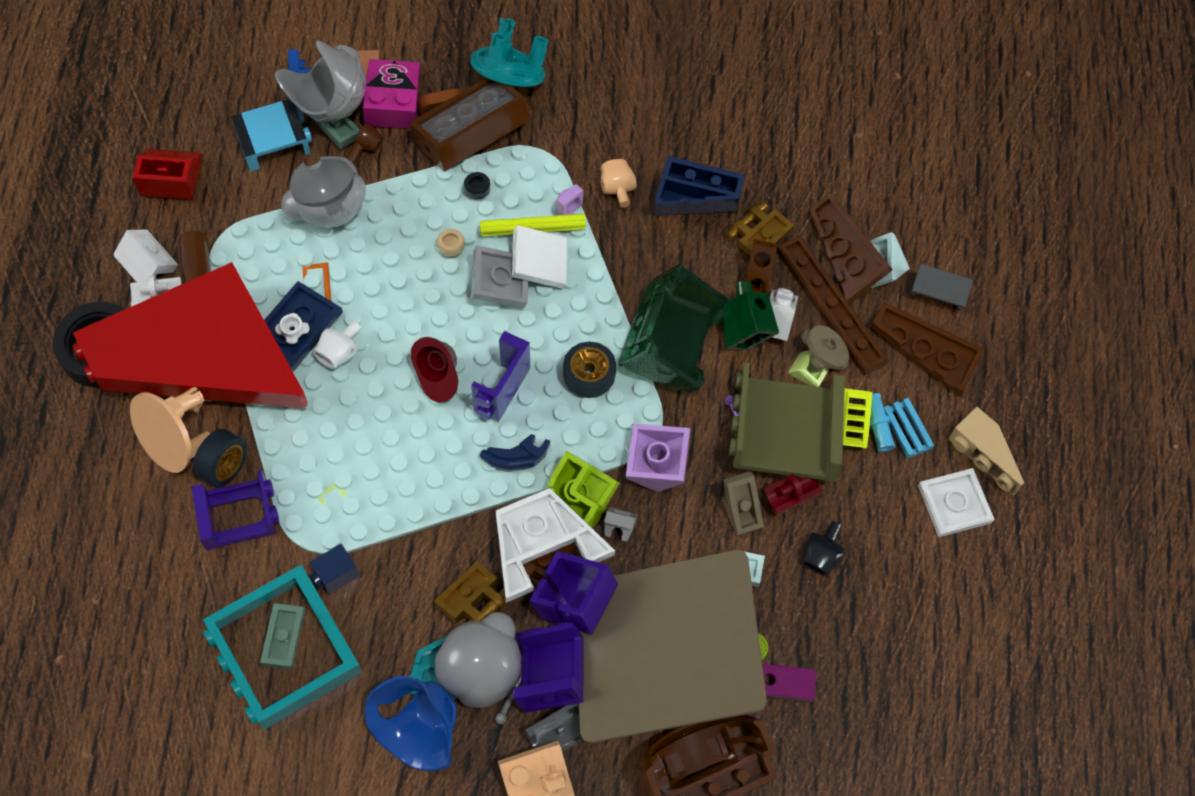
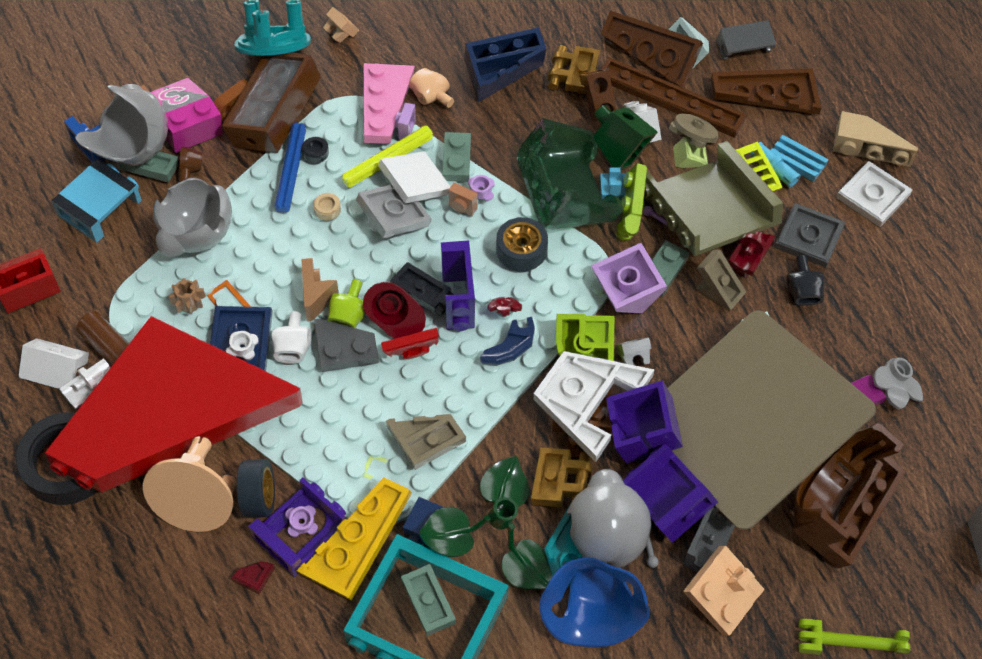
camera: 30 degrees left, 5 degrees down
(175, 530) = (254, 576): none -> dark red tile
(237, 499) = (306, 513): none -> lavender plate
(261, 555) = (353, 548): none -> yellow wing
(280, 259) = (187, 296): none -> medium nougat gear
(343, 588) = (507, 487): none -> dark green plant
(377, 376) = (344, 346): none -> dark grey wing
(383, 314) = (316, 292): none -> medium nougat slope
(385, 496) = (426, 437): none -> dark tan wing
(398, 342) = (347, 308): none -> lime piece
(429, 407) = (411, 345): none -> red tile
(443, 191) = (290, 168): none -> blue axle
(475, 360) = (423, 288): none -> black hinge
(534, 416) = (504, 306): none -> dark red plant
(566, 300) = (463, 199): none -> nougat plate
(571, 164) = (383, 98): none -> bright pink wing
(582, 80) = (341, 23): none -> light nougat tile
(591, 291) = (482, 182): none -> lavender plate
(592, 257) = (456, 156): none -> sand green plate
(707, 462) = (669, 262): none -> sand green plate
(714, 386) = (632, 202): none -> lime hinge
(716, 360) = (612, 183): none -> medium azure tile
(834, 696) = (898, 382): none -> light grey plate
(863, 507) = (810, 234): none -> dark grey tile

